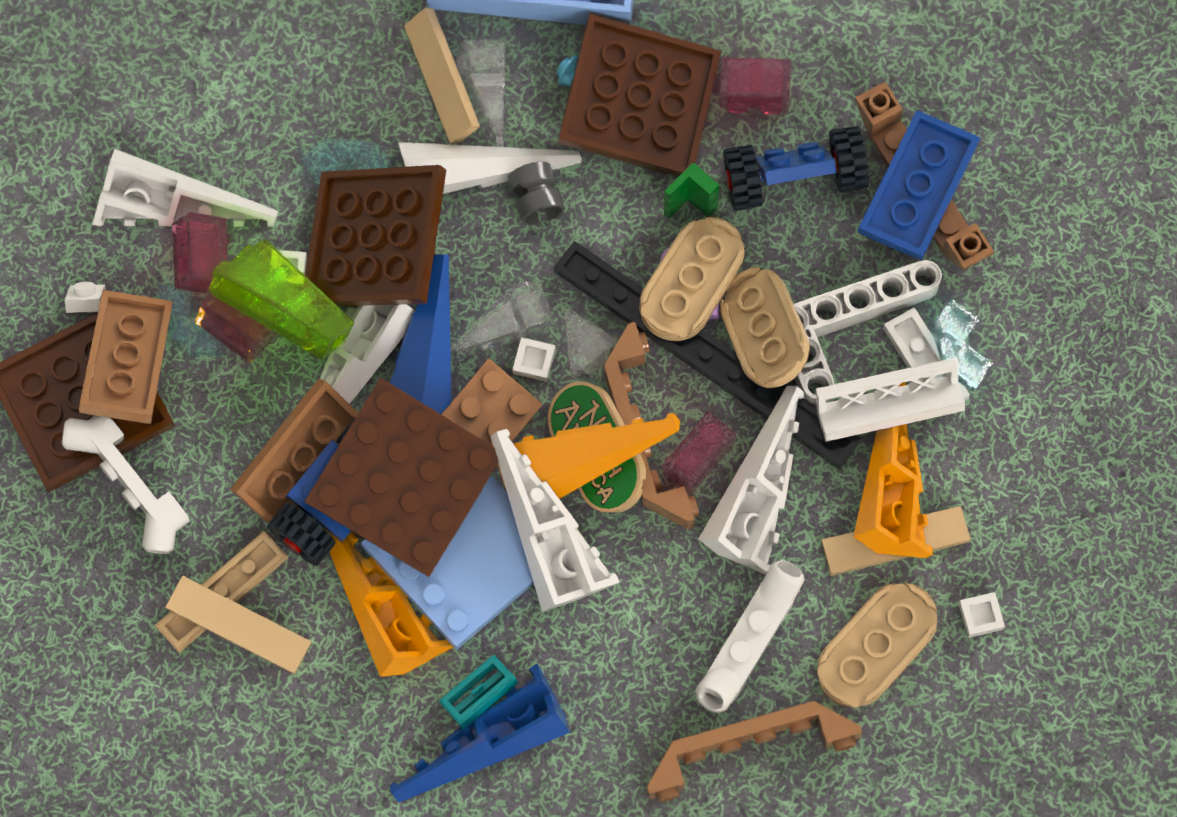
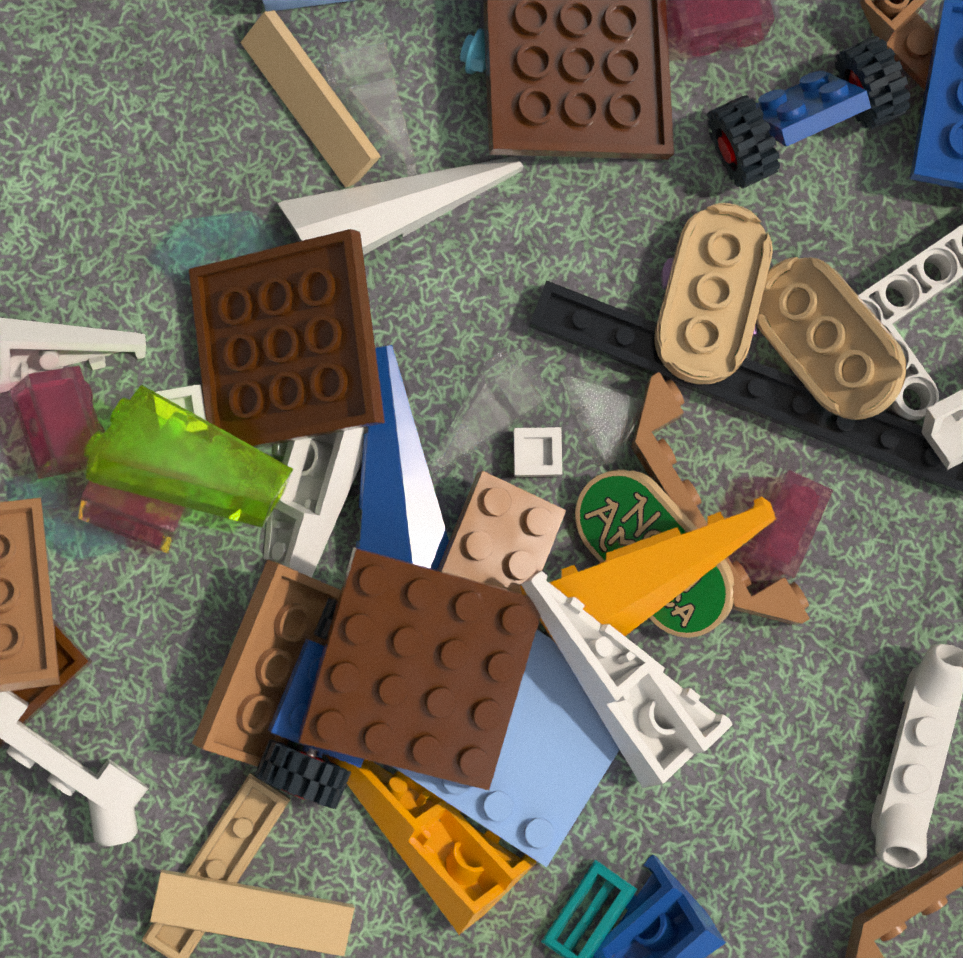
camera: 25 degrees left, 10 degrees up
(534, 189) = (477, 226): dark grey wheel -> none
(694, 187) = (692, 173): green panel -> none
(748, 512) = (868, 591): white wedge -> none

